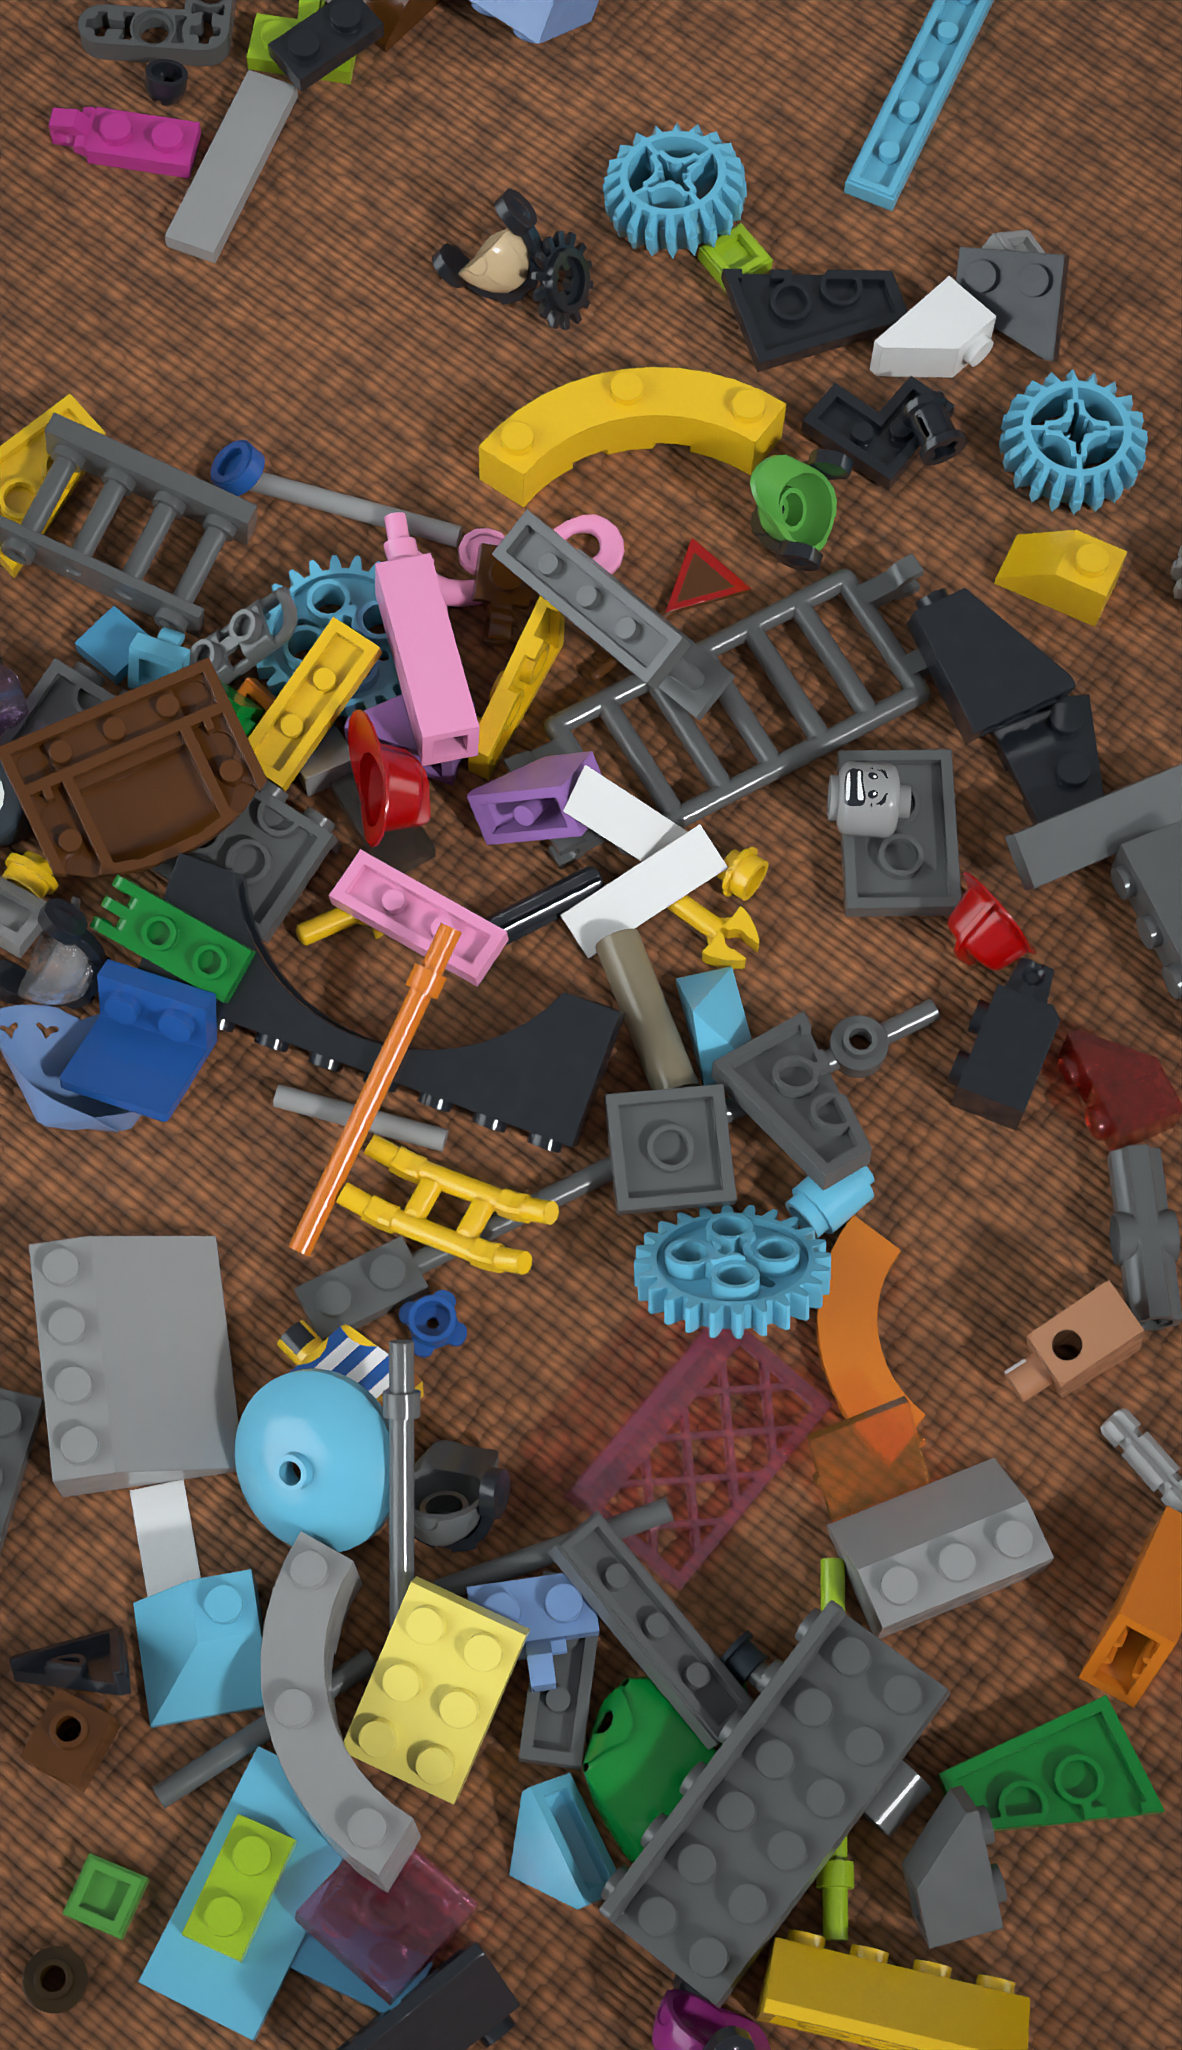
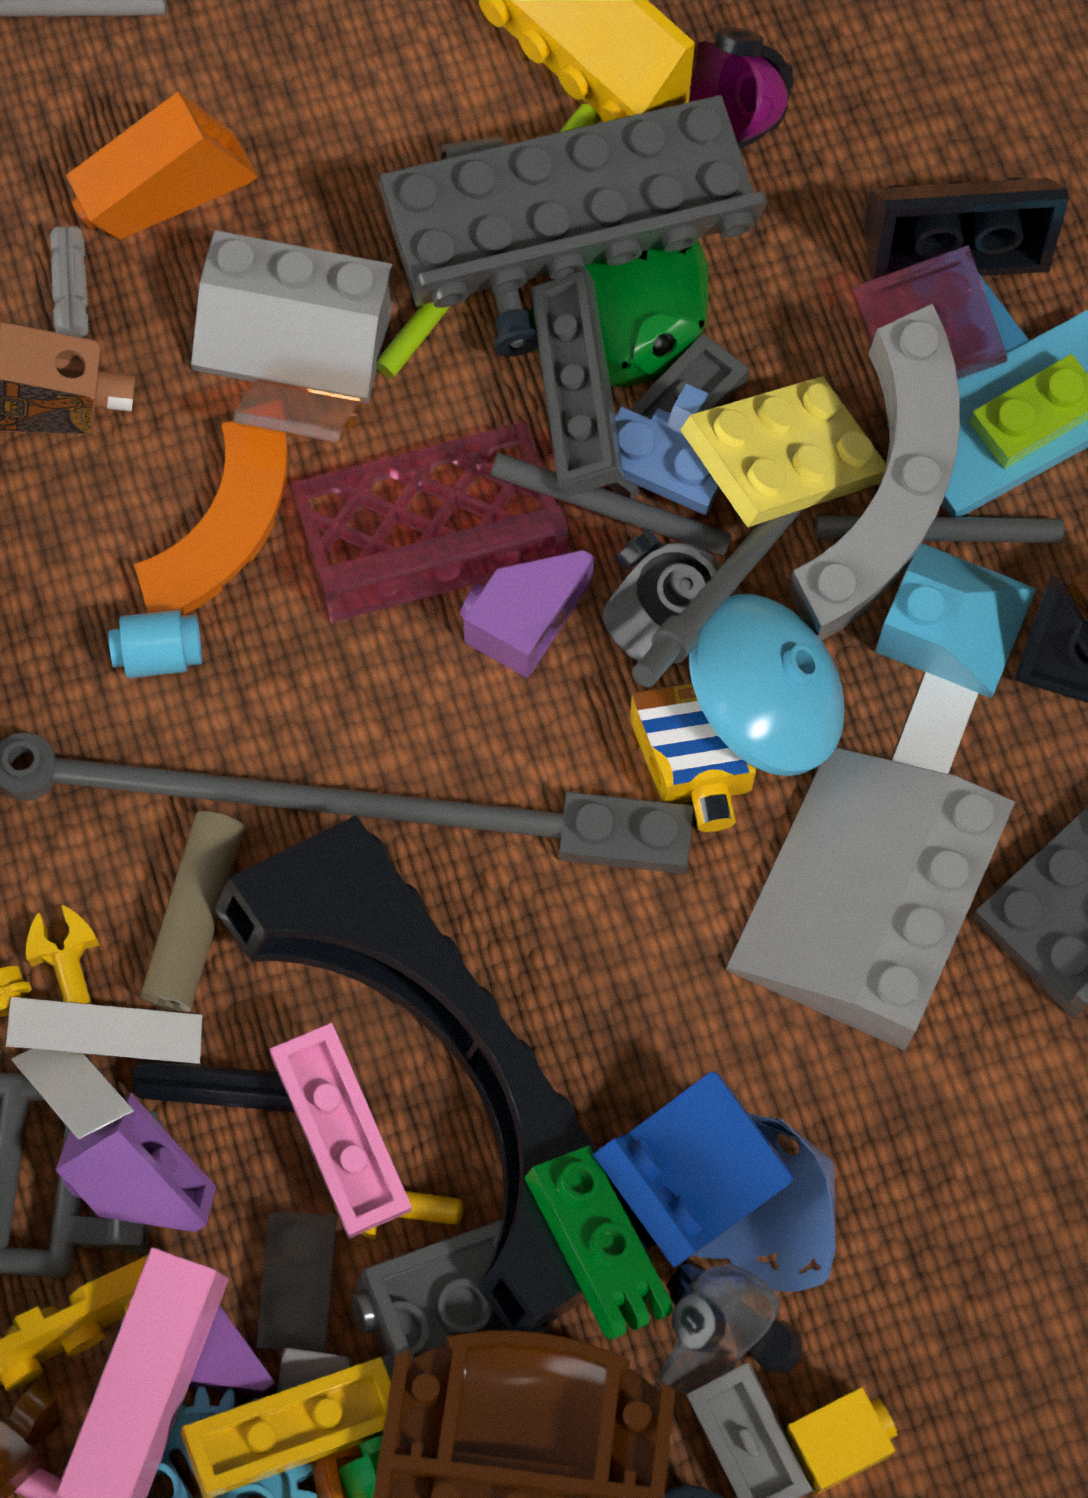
camera: 145 degrees left, 0 degrees up
(30, 873) = (691, 1446): yellow plate -> none
(339, 1112) = (522, 993): light grey bar -> none
(388, 782) = (278, 1277): red piece -> none
(424, 983) = (391, 1026): orange bar -> none
(430, 1181) = (508, 803): yellow piece -> none
(438, 1307) = (582, 744): blue plate -> none
(560, 1845) = (756, 292): medium azure slope -> none
(563, 1411) = (525, 608): none -> medium lavender slope
(670, 1149) = (268, 763): dark grey plate -> none
(713, 1017) = (134, 870): medium azure slope -> none
(732, 1271) = (347, 596): medium azure gear -> none
(794, 1099) = (126, 727): dark grey wing -> none
(950, 1875) = (470, 83): dark grey slope -> none
(1059, 1774) = (328, 116): green wing -> none

